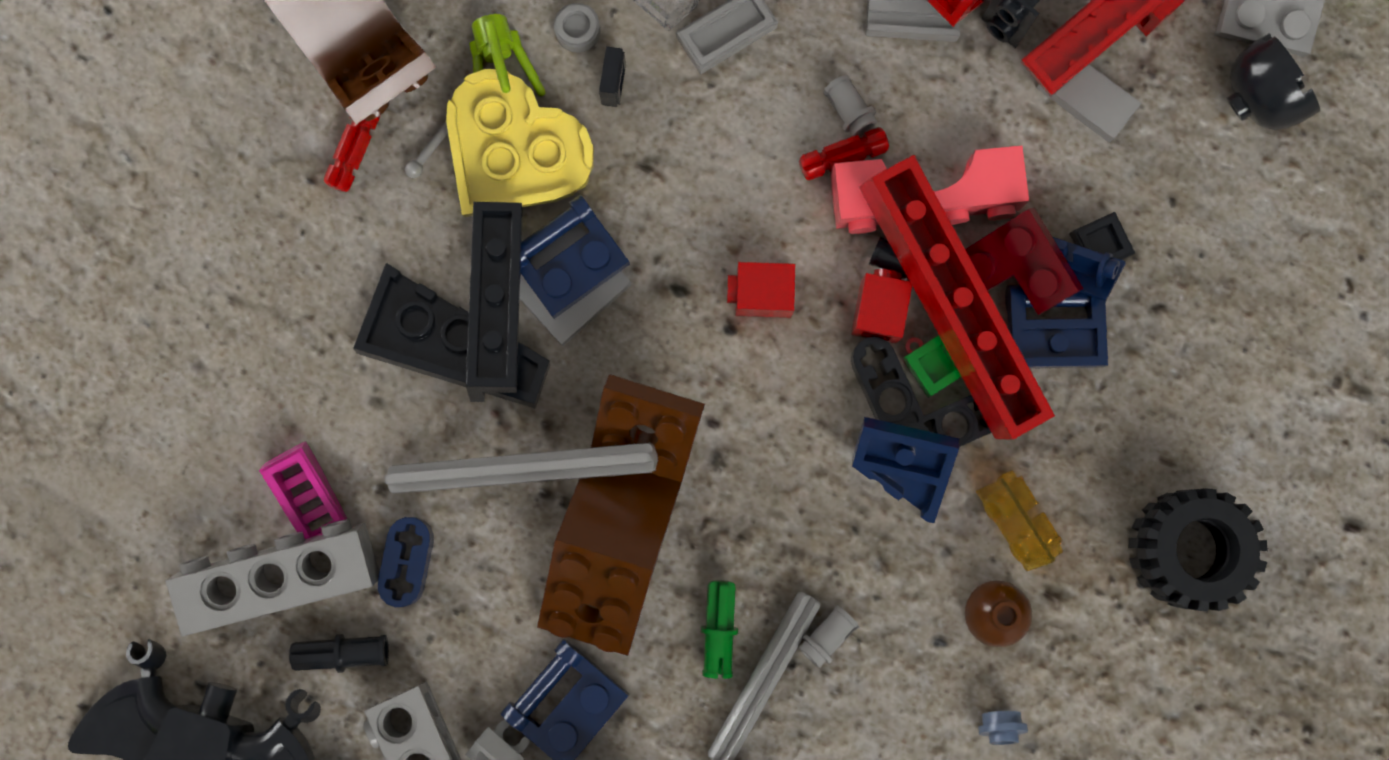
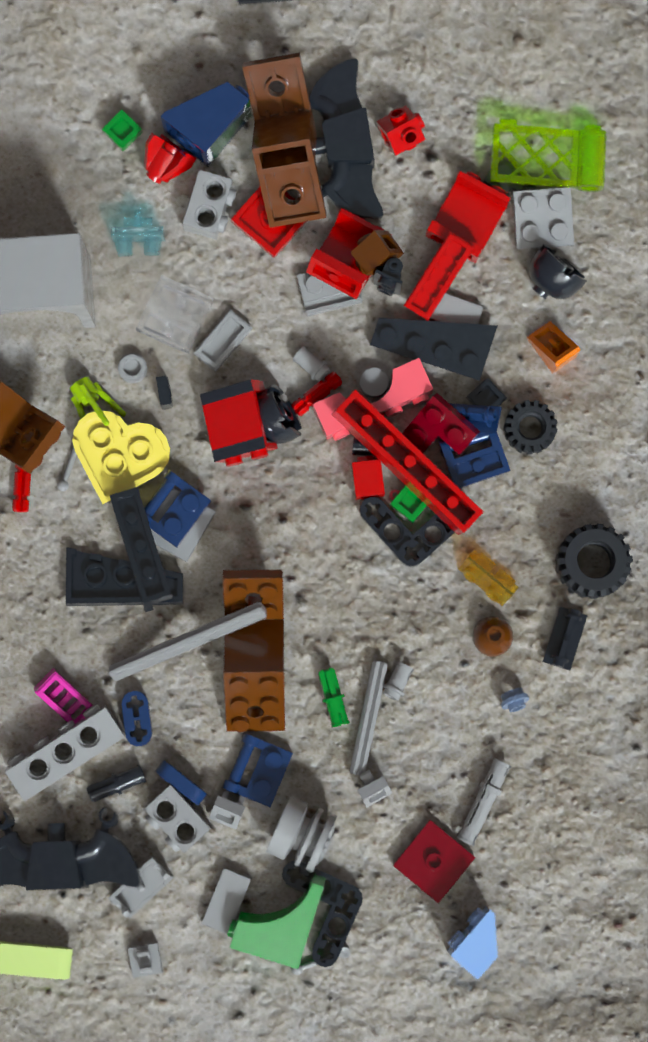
camera: 20 degrees left, 0 degrees up
(438, 685) = (181, 782): none -> dark blue beam
(707, 154) = (236, 423): none -> red panel
(762, 289) = (294, 491): red brick -> none
(766, 166) = (278, 417): none -> black cylinder
(907, 462) = (410, 565): dark blue wing -> none
(939, 163) = (374, 382): none -> light grey tile
(1060, 140) = (446, 345): none -> black wing
(1111, 654) = (565, 638): none -> black hinge
(1185, 302) = (530, 409): none -> black tyre
(1233, 198) = (553, 346): none -> orange slope

